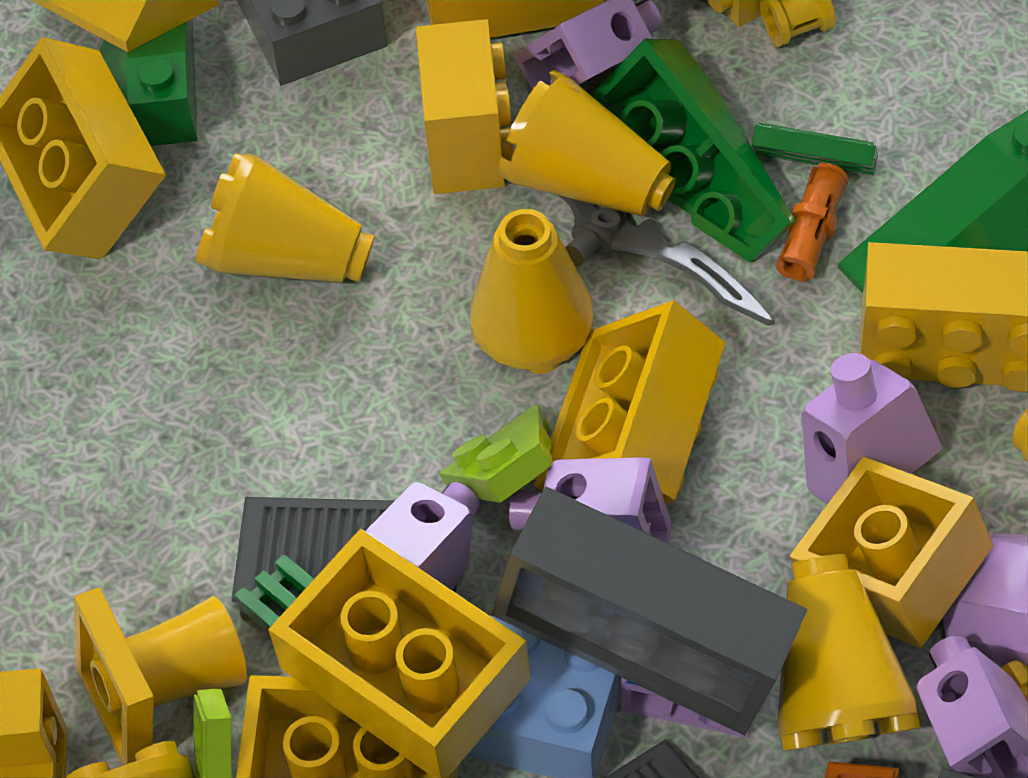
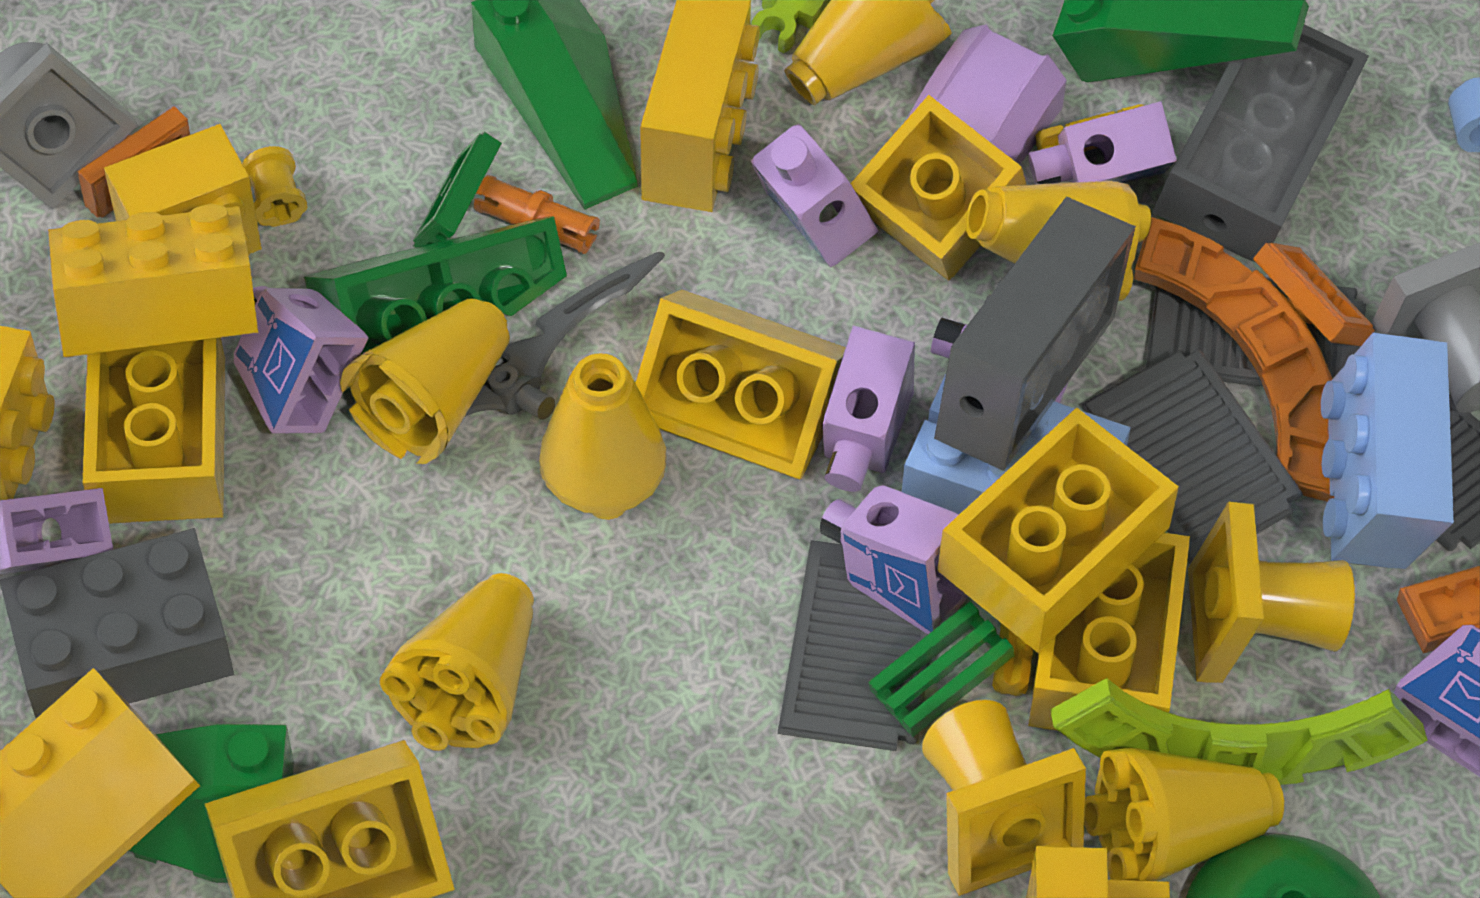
camera: 90 degrees left, 0 degrees up
(464, 105) = (352, 470): yellow brick -> none
(505, 460) = (792, 479): lime wing -> none

